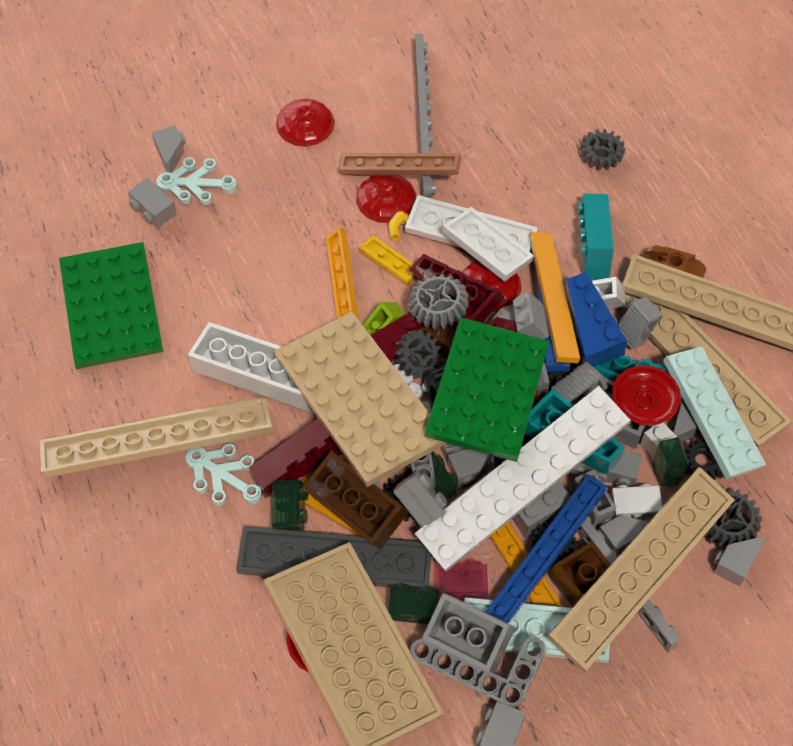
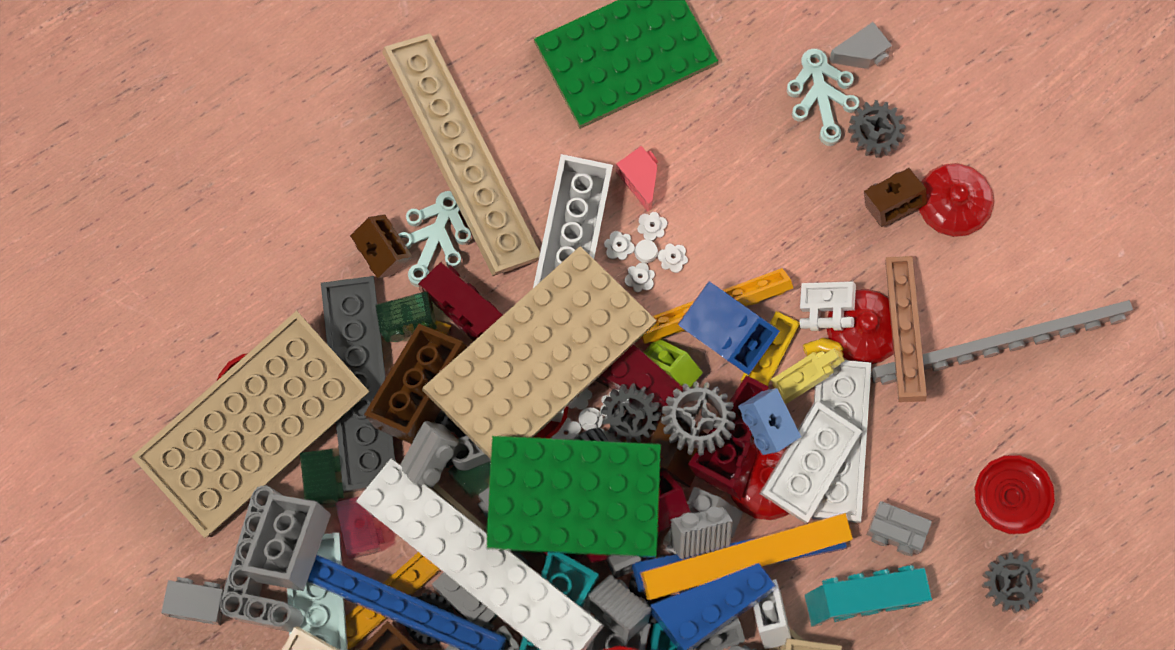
camera: 75 degrees right, 15 degrees up
(151, 203) = (774, 54): light grey brick -> none
(207, 514) = (381, 246): none -> reddish brown brick
(223, 311) = (639, 174): none -> coral slope
(235, 153) = (865, 124): none -> dark grey gear
(283, 323) = (646, 252): none -> white plant
(293, 152) = (895, 197): none -> reddish brown brick
(359, 210) = (827, 297): none -> white plate
(368, 272) = (728, 327): none -> blue slope
(416, 234) = (806, 374): none -> light yellow hinge
(453, 254) = (769, 421): none -> medium blue brick
(539, 131) = (1014, 494): none -> red hat
(547, 207) = (898, 529): none -> light grey brick

